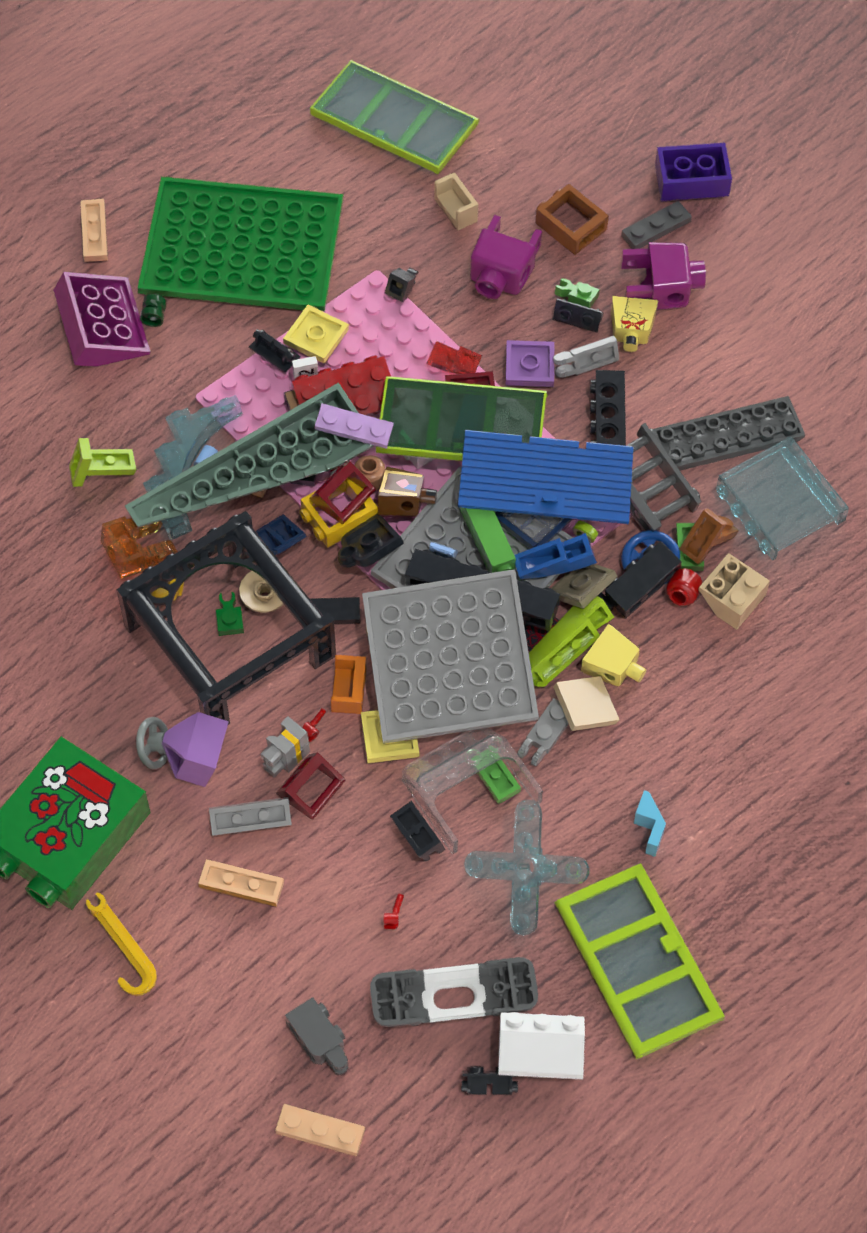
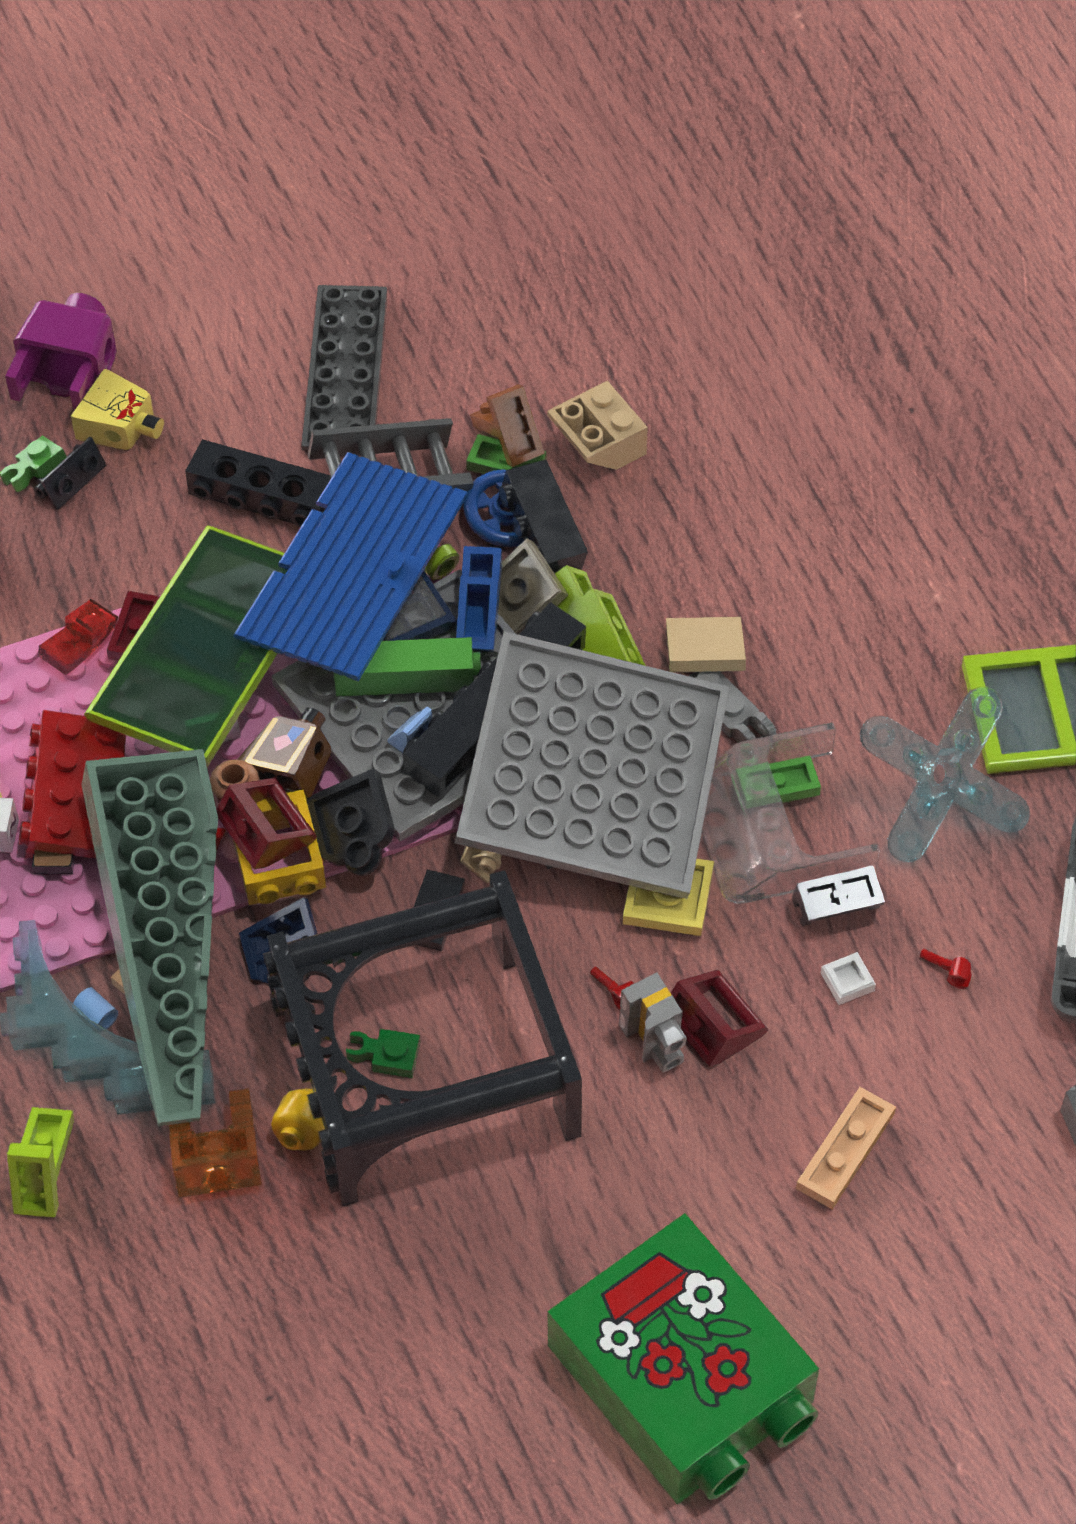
camera: 70 degrees left, 5 degrees down
(128, 947) = (901, 1331): yellow piece -> none
(189, 746) = (615, 1141): medium lavender piece -> none
(250, 593) = (379, 976): tan dish -> none
(250, 816) = (742, 1106): light grey plate -> none
(348, 684) = (570, 920): orange panel -> none
(354, 426) = (167, 766): lavender plate -> none
(365, 855) = (848, 978): none -> white tile
(529, 363) = (125, 552): medium lavender plate -> none
(587, 357) = (150, 482): light grey hinge -> none
(613, 658) = (647, 593): light yellow torso -> none
(651, 818) = (896, 623): medium azure slope -> none
(684, 587) = (574, 481): red head -> none
(780, 496) = (475, 338): clear light blue panel -> none

